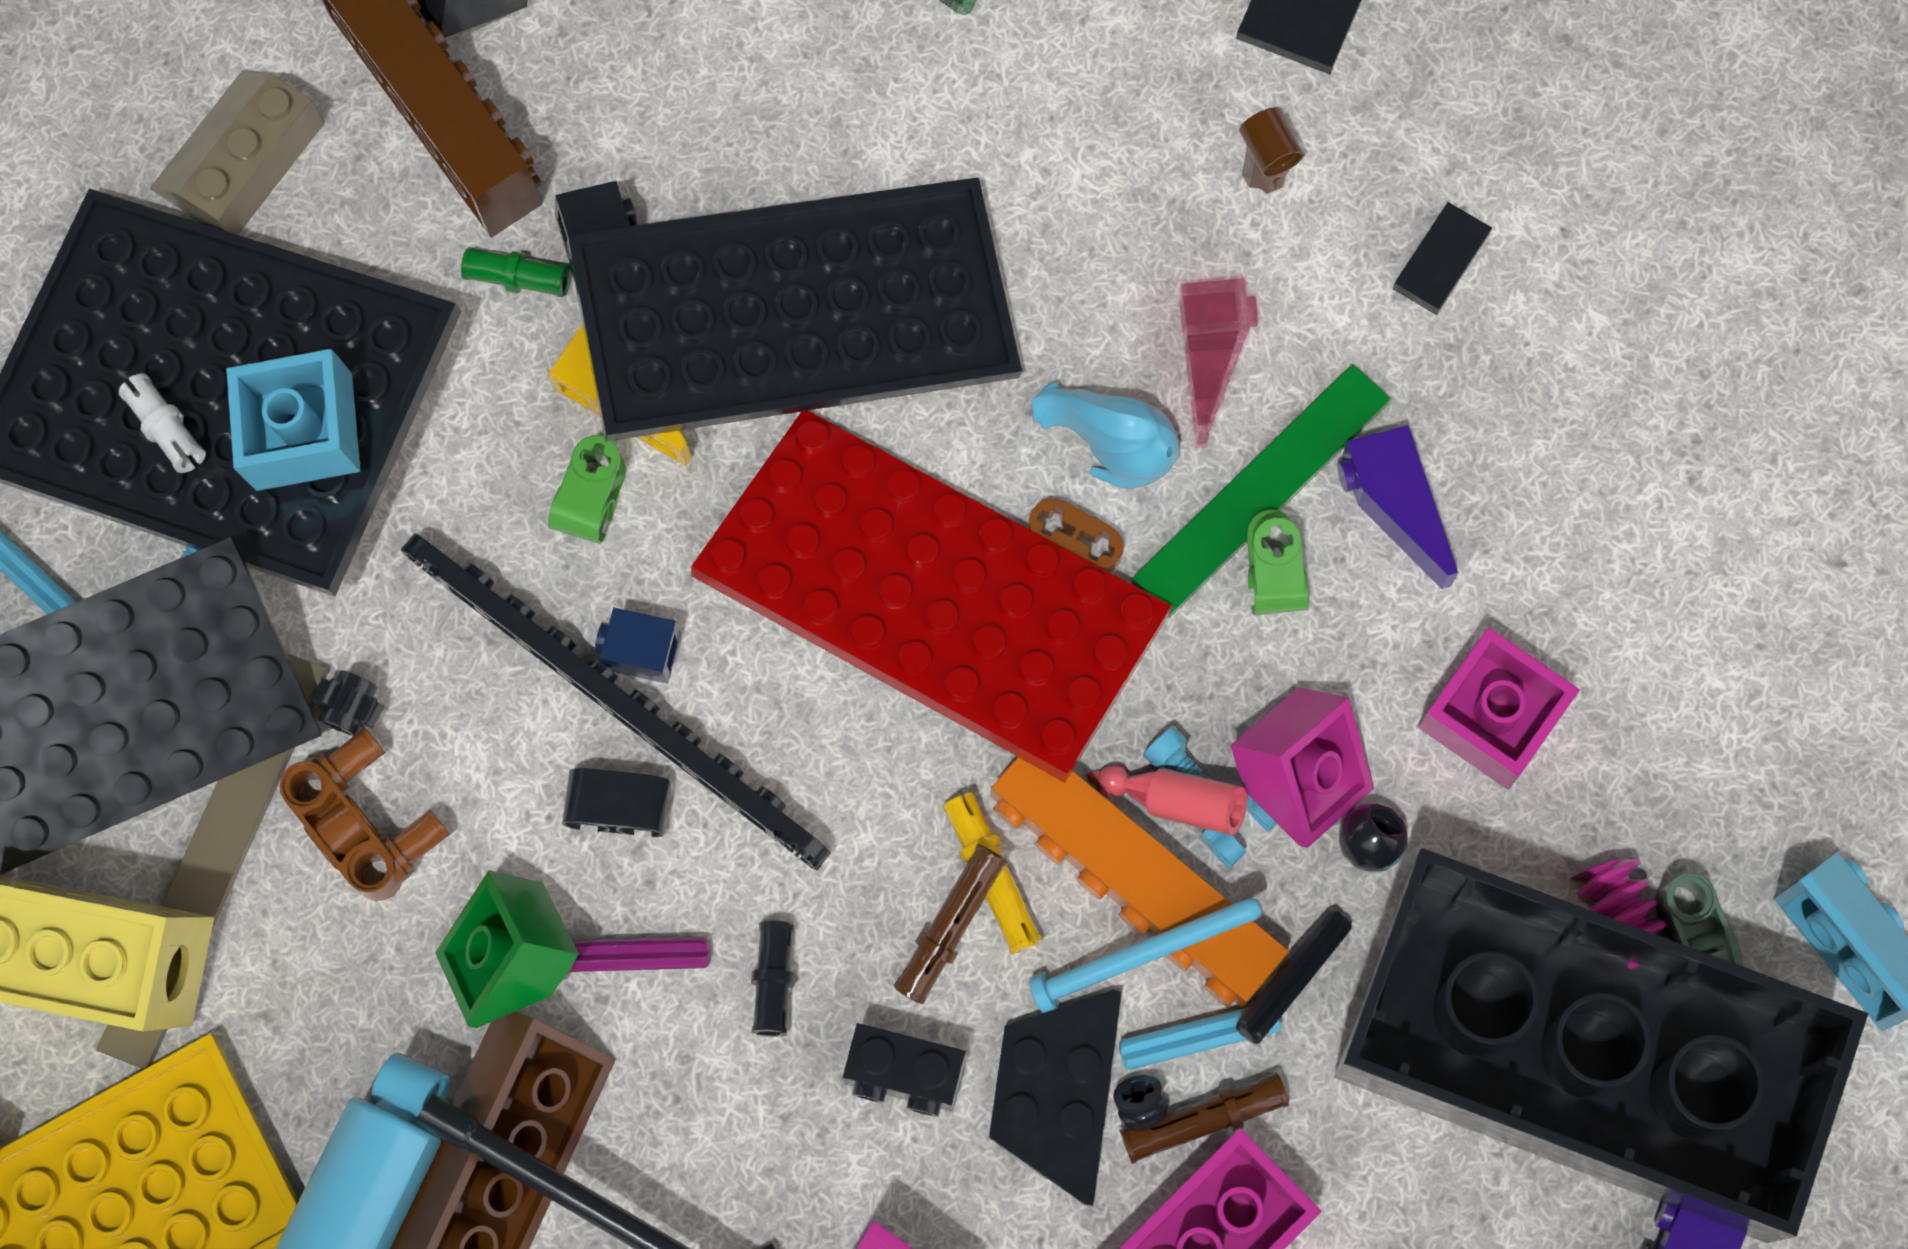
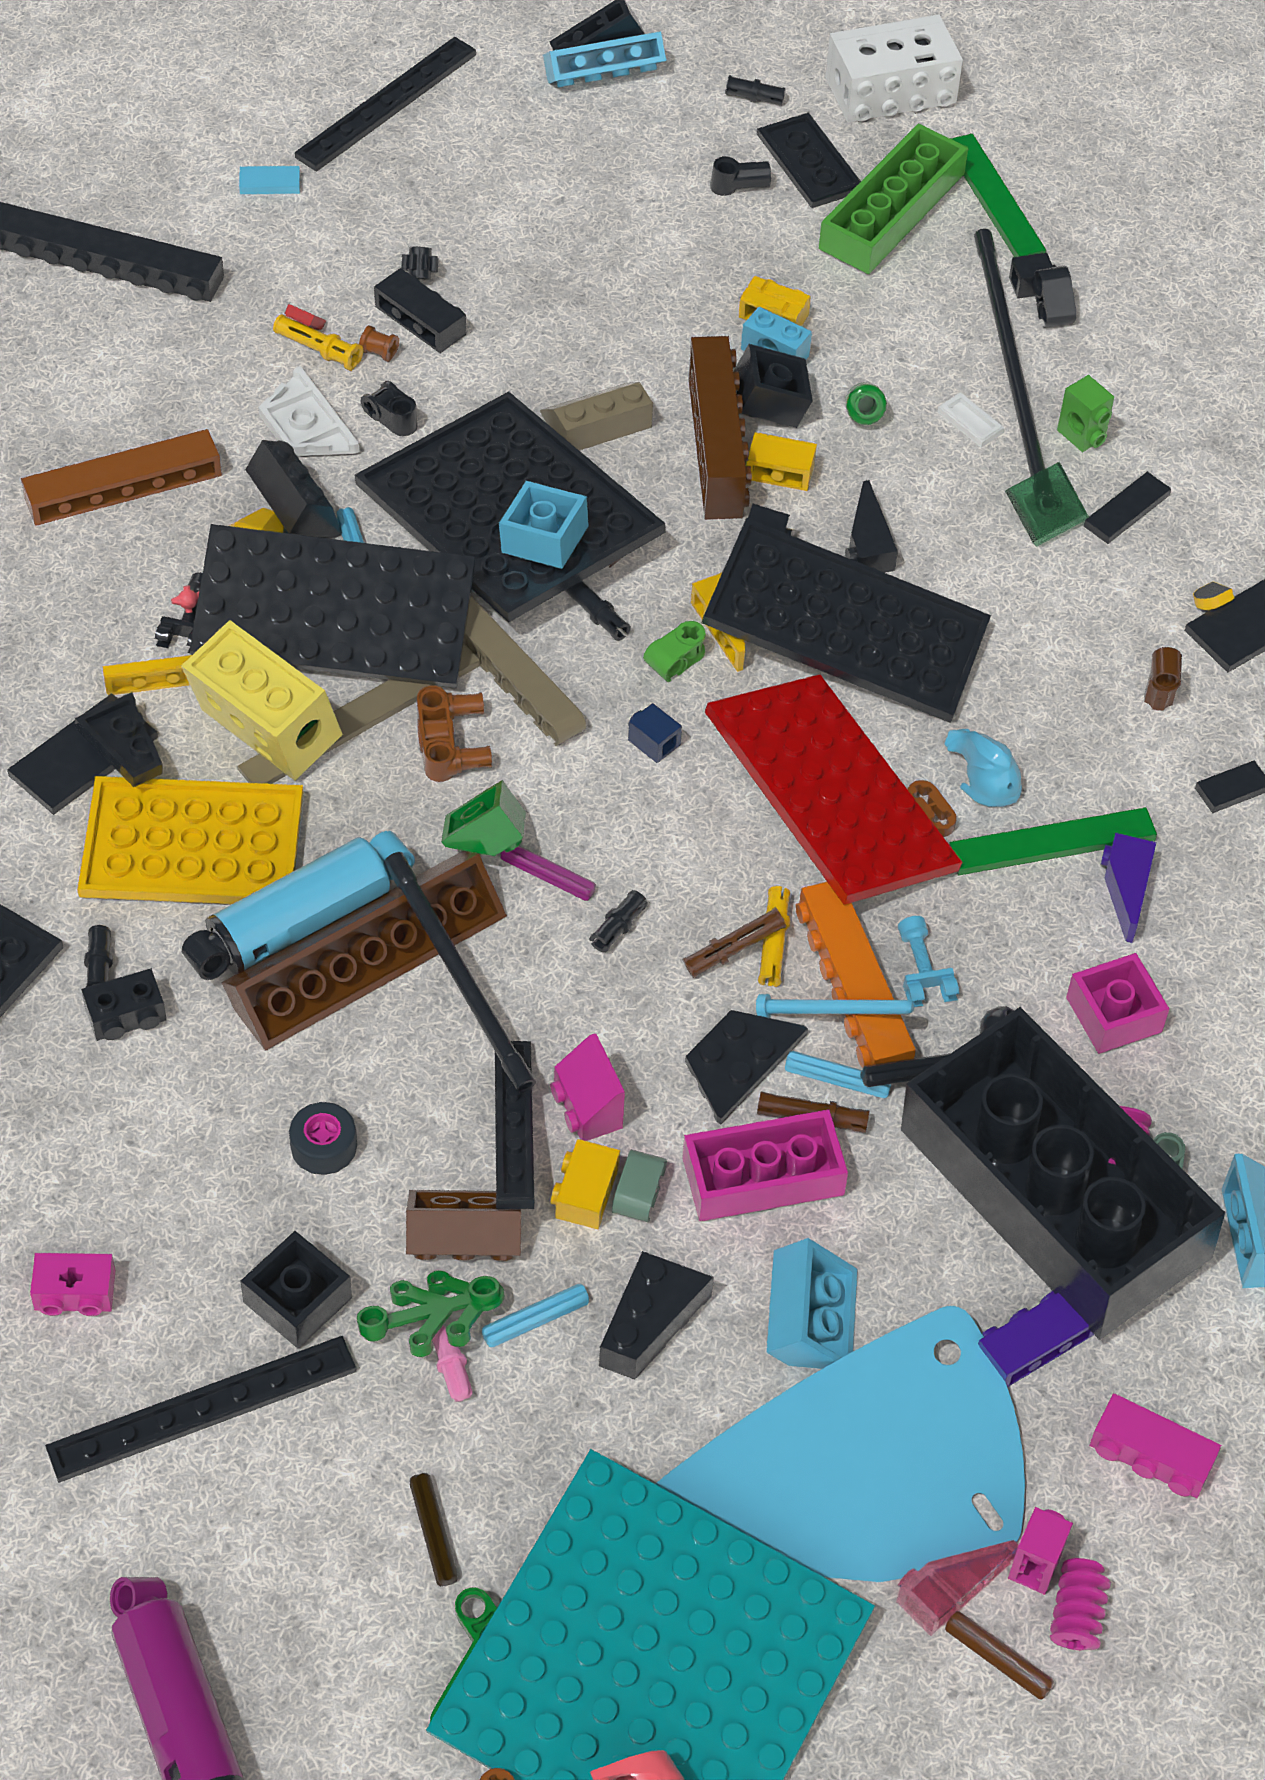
camera: 25 degrees right, 20 degrees down
(162, 423) = (474, 501): white pin -> none
(347, 703) = (480, 677): black gear -> none
(400, 663) = (521, 677): none -> dark tan beam
(445, 485) = (600, 611): none -> black pin
(515, 272) = (705, 536): green pin -> none
(542, 83) = (781, 461): none -> yellow brick
(616, 801) = (591, 796): black beam -> none
(632, 710) = (628, 759): black plate -> none
(745, 148) = (870, 536): none -> black slope
(905, 1069) = (661, 995): black brick -> none
(1140, 1102) = (782, 1083): black bush -> none
(1178, 796) = (905, 950): coral wheel -> none
(1214, 334) = (1071, 759): clear pink slope -> none
(1278, 571) = (1032, 878): bright green piece -> none
(1304, 763) = (986, 970): dark pink slope -> none

